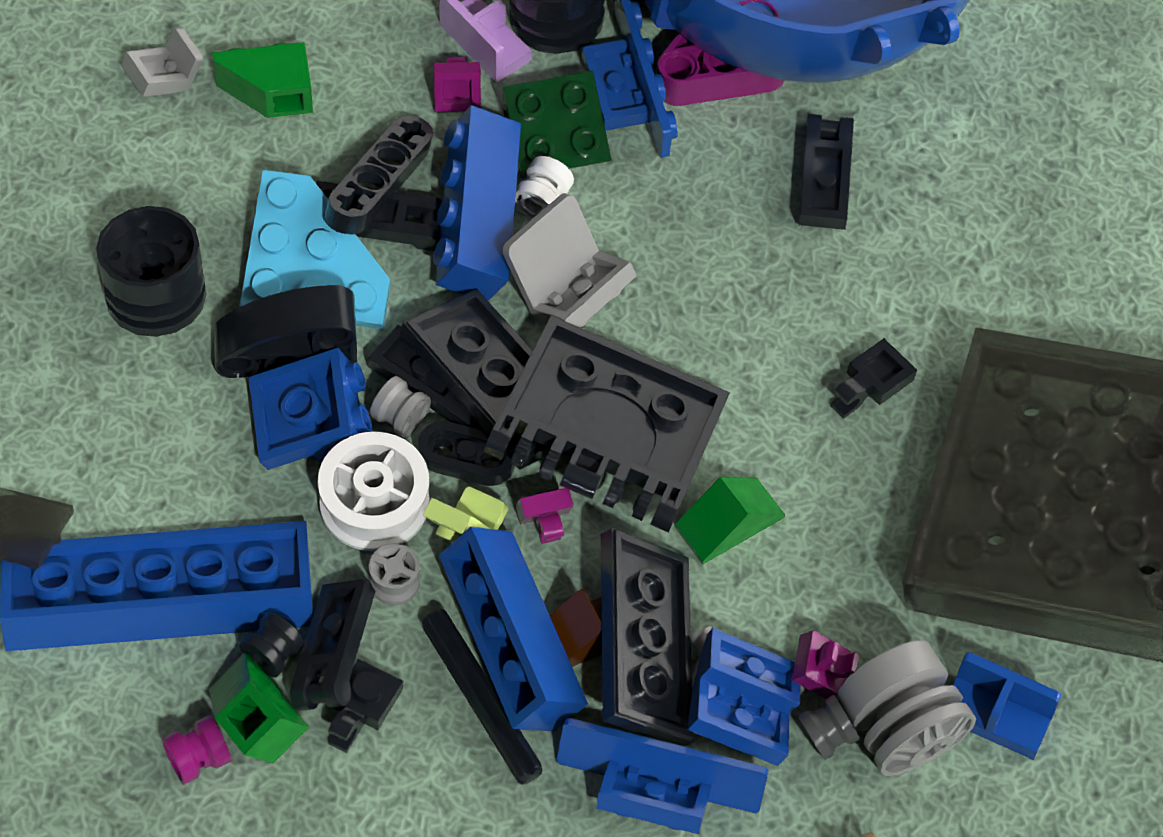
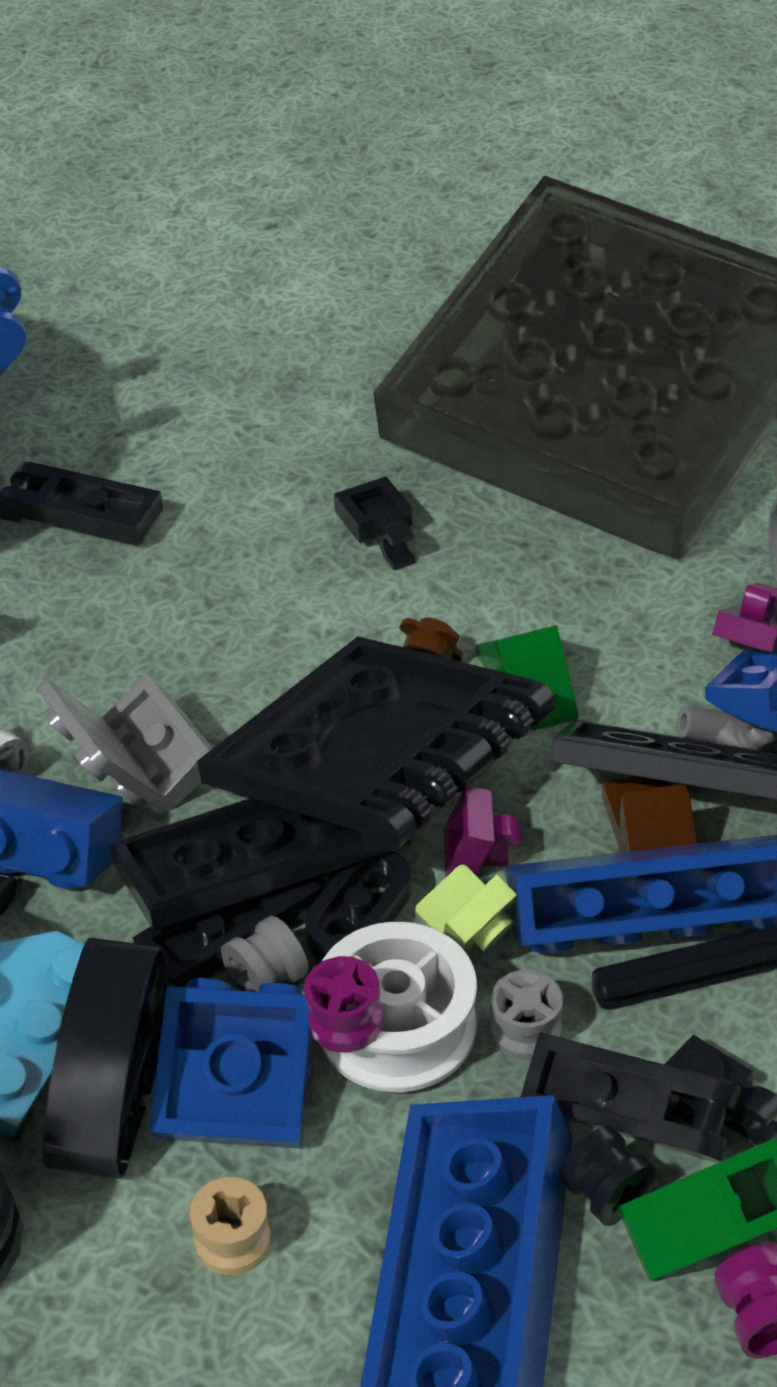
camera: 70 degrees left, 15 degrees down
(191, 453) = (227, 1246): none -> tan wheel
(323, 440) = (327, 993): none -> magenta wheel
(735, 443) = (431, 637): none -> reddish brown plate

